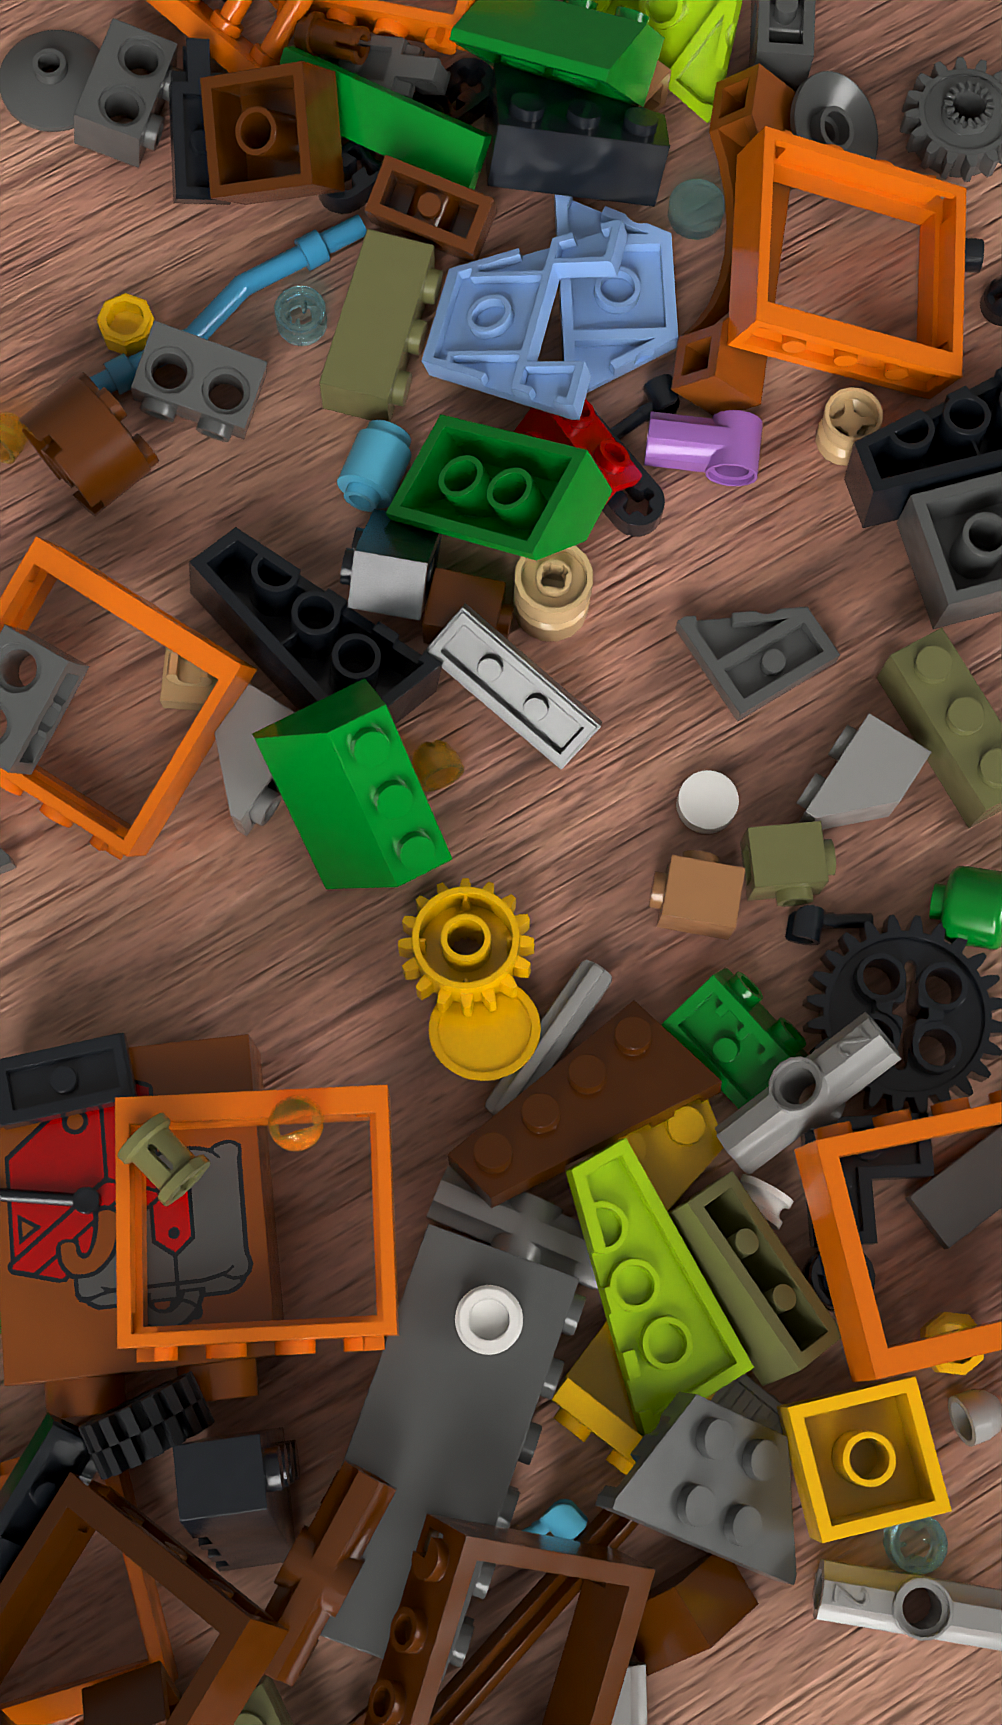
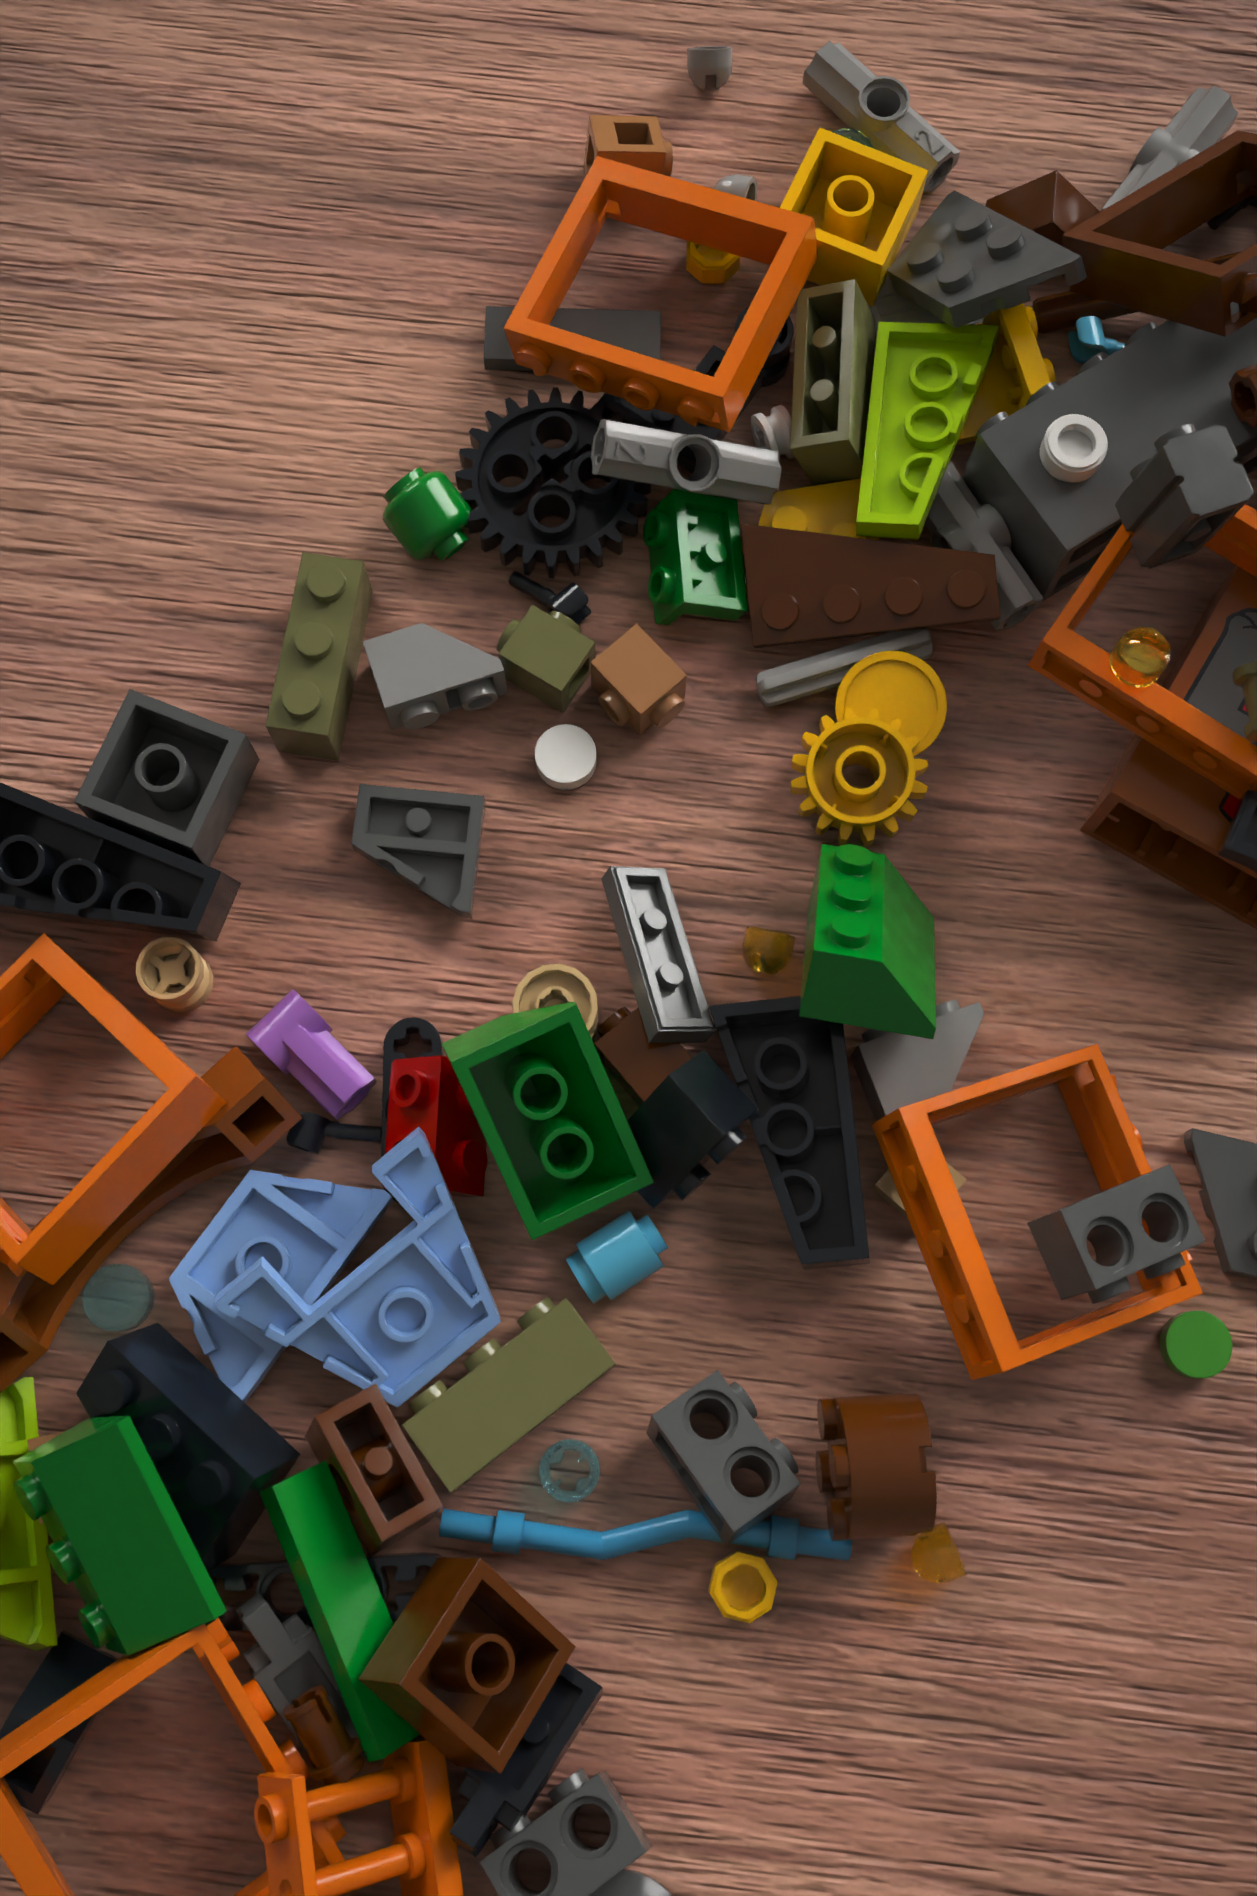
camera: 140 degrees left, 0 degrees up
(353, 1264) = (1183, 494): none -> dark grey brick

